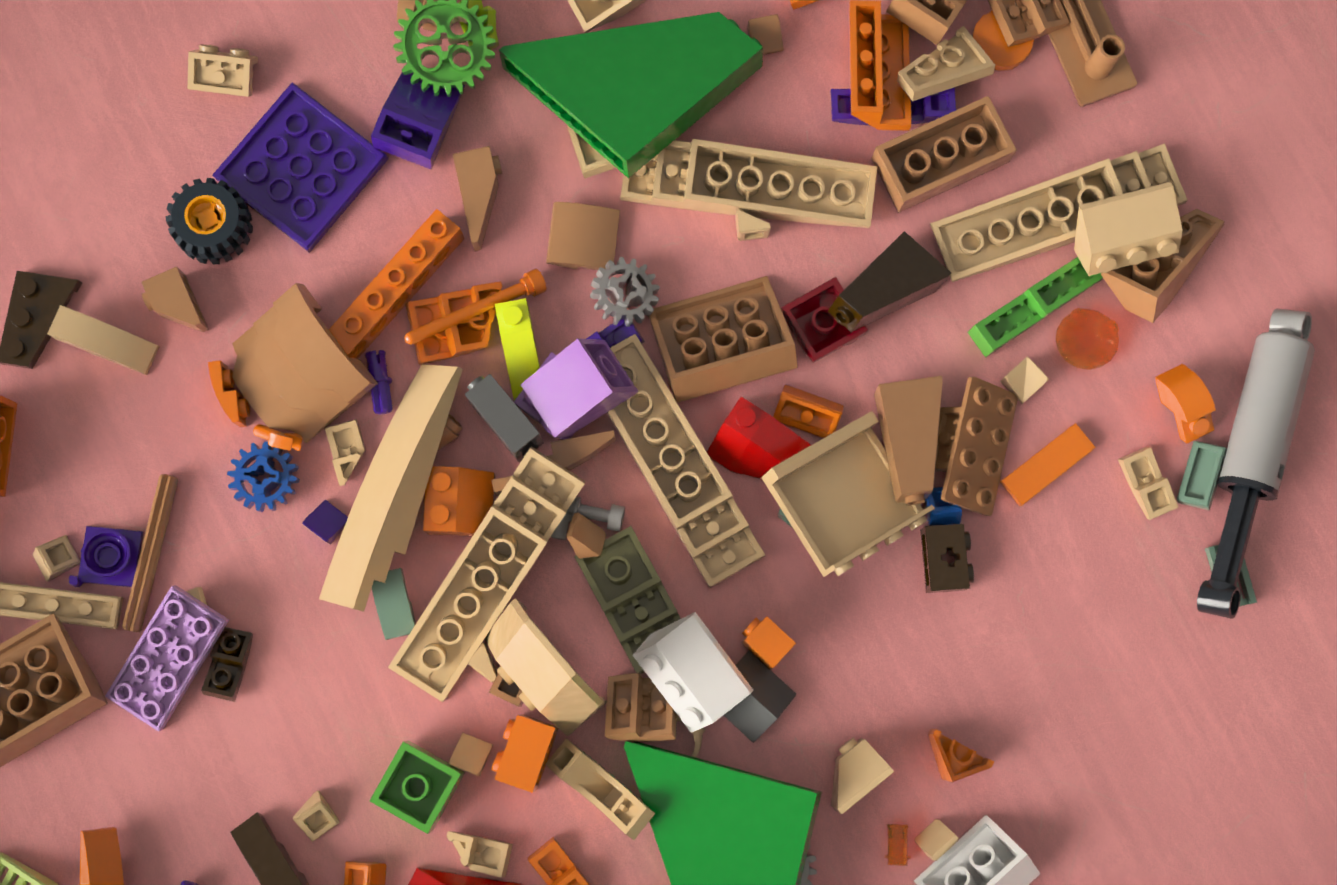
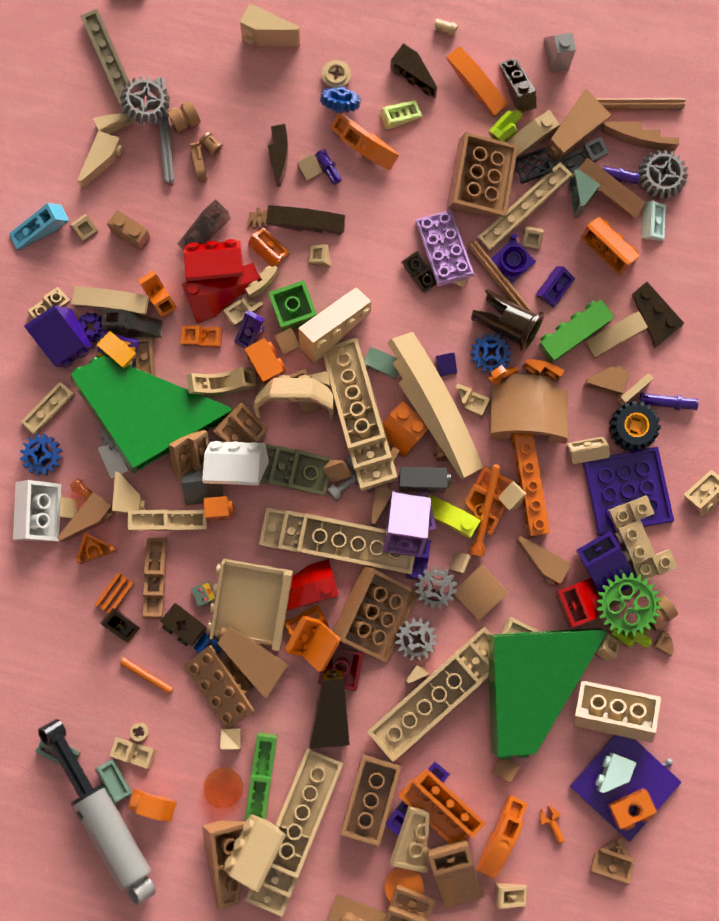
camera: 130 degrees right, 0 degrees up
(100, 473) = (555, 286): none -> dark purple slope
(134, 197) = (669, 401): none -> dark purple pin
(141, 392) = (575, 331): none -> bright green brick
(158, 259) = (635, 389): none -> tan tile
(192, 472) = (515, 323): none -> dark brown piece
(288, 253) = (588, 450): none -> tan slope
(356, 106) = (635, 541): none -> tan bracket
(381, 392) = (496, 444): dark purple axle -> none
(396, 711) = (332, 324): none -> wedge
(407, 860) = (267, 277): none -> tan slope
(430, 292) = (512, 496): none -> tan slope
(494, 108) = (579, 603): none -> red slope
(499, 816) = (249, 329): none -> dark purple slope
(516, 31) = (608, 648): none -> tan slope
(568, 290) = (459, 562): none -> tan slope
(720, 260) = (421, 632): none -> light grey gear
(730, 744) = (188, 453): none -> medium nougat slope
(824, 375) = (313, 642): none -> orange bracket
(825, 840) = (112, 460): none -> white sticker
(839, 694) = (167, 520): none -> tan slope
(885, 569) = (203, 594): none -> sand green tile
(916, 802) = (90, 515): none -> medium nougat slope
(921, 647) = (154, 578): none -> medium nougat slope
(1013, 678) = (114, 593): none -> orange tile
(1017, 636) = (120, 625): none -> dark brown slope
(1045, 549) = (146, 675): none -> orange bar
(1047, 464) = (183, 713): orange tile -> none
(1120, 488) = (137, 726): none -> tan bush

